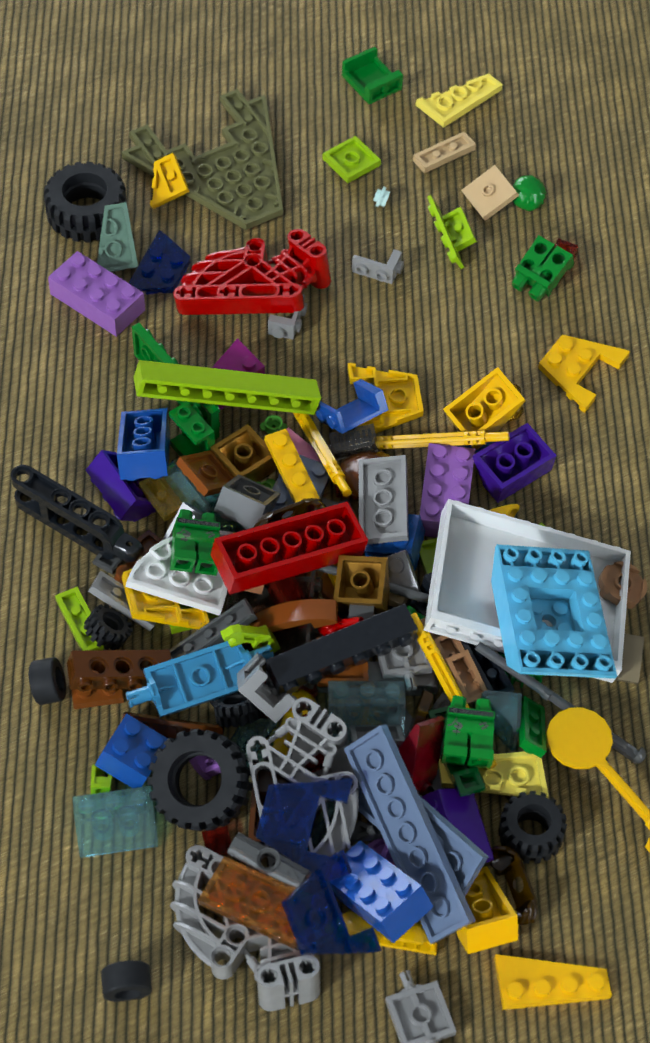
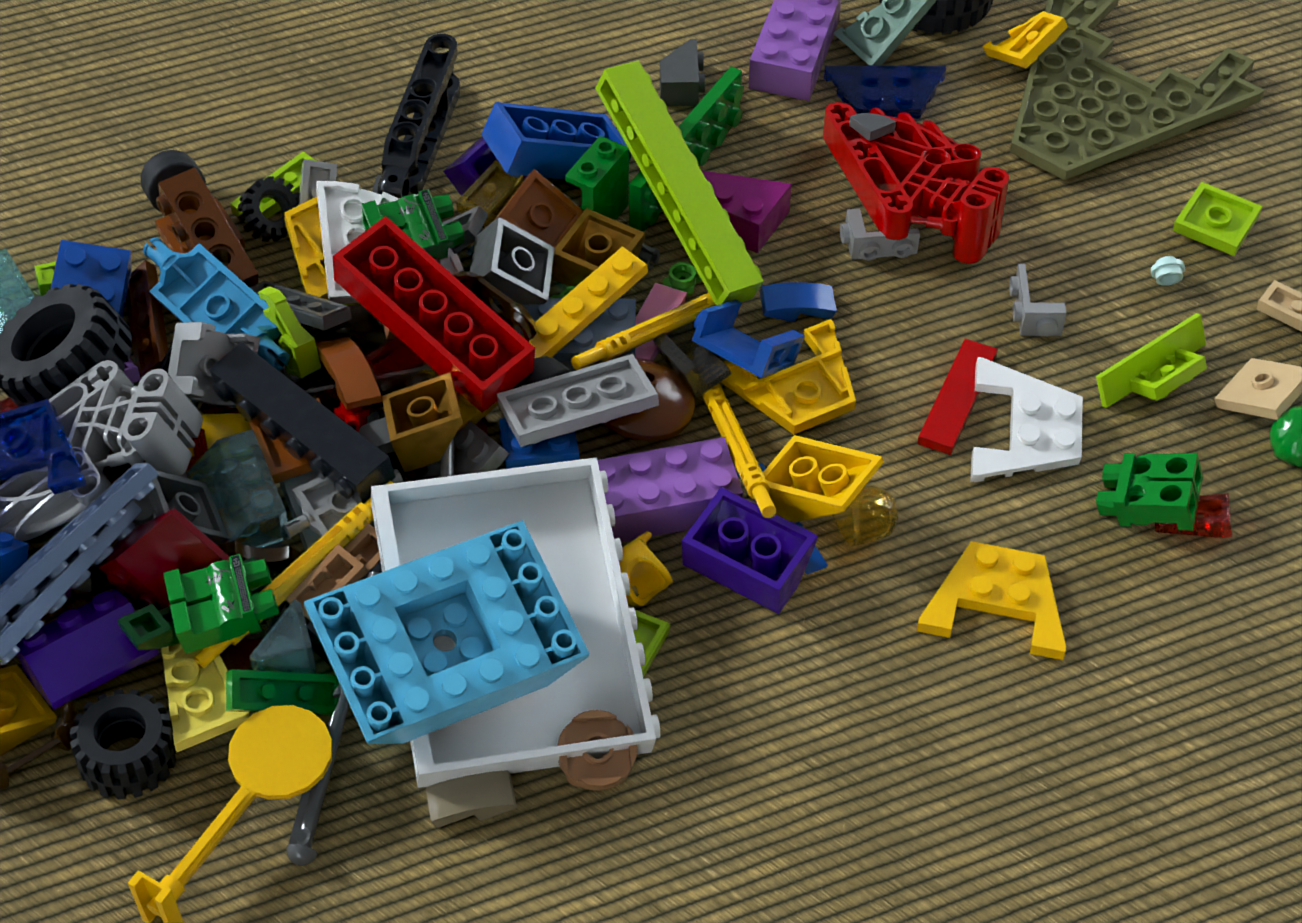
camera: 70 degrees right, 5 degrees down
(96, 364) = (681, 77): none -> dark grey slope
(211, 279) = (872, 125): none -> dark grey tile
(323, 371) = (790, 299): none -> blue slope
(428, 329) = (955, 399): none -> red tile
(468, 298) = (1042, 424): none -> white wing

